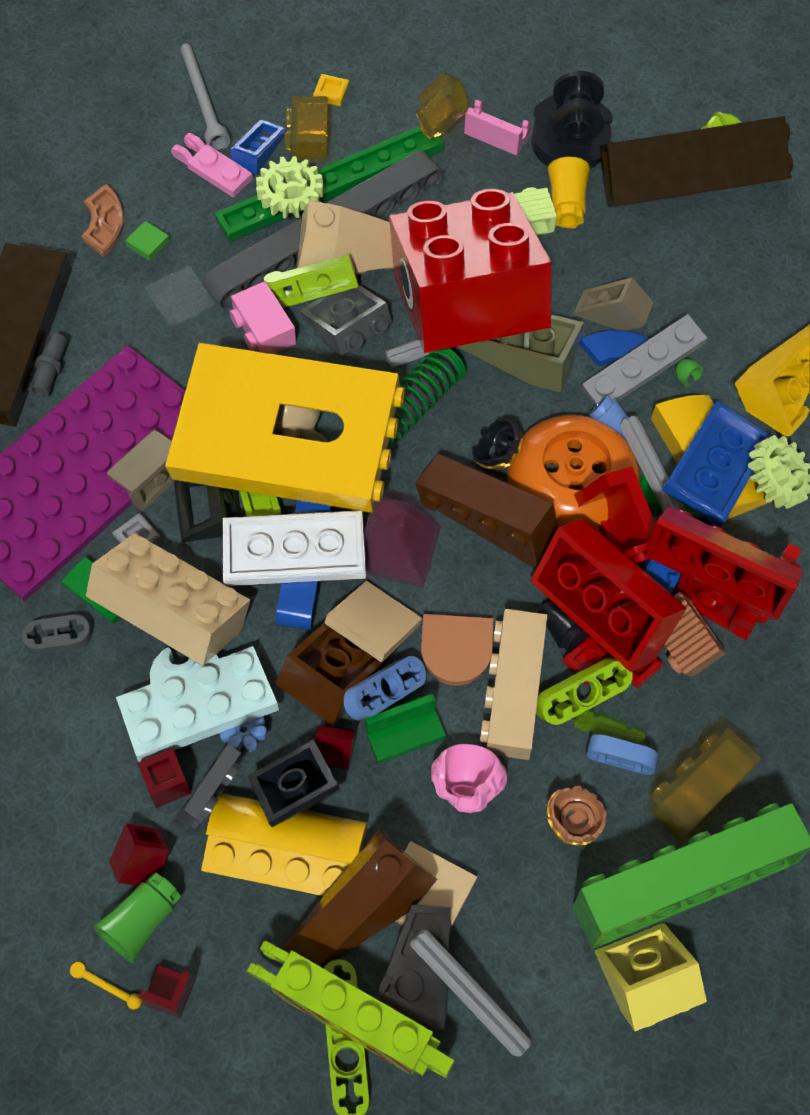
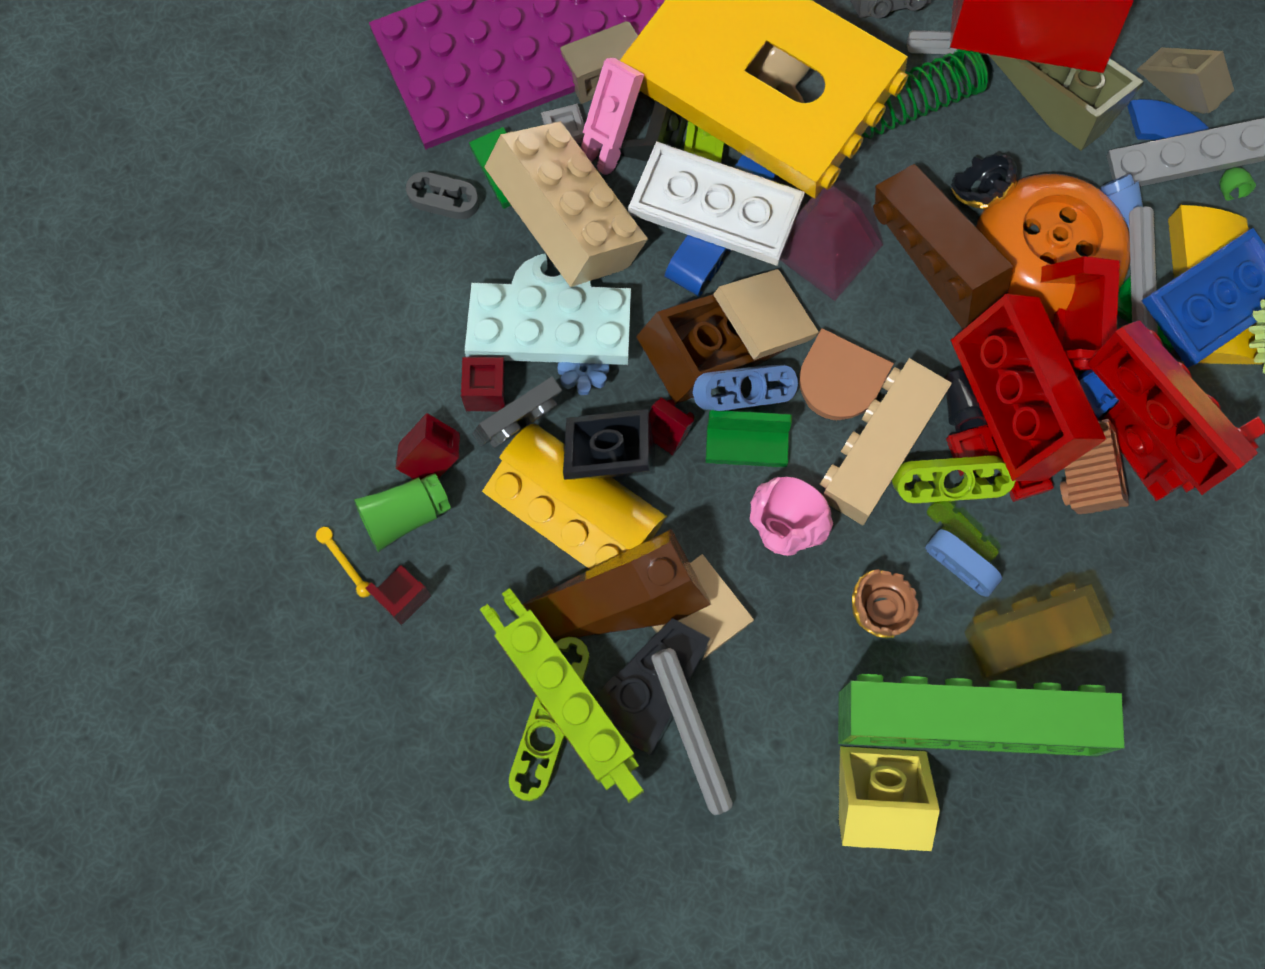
camera: 25 degrees right, 10 degrees up
(174, 509) = (610, 113): none -> bright pink hinge

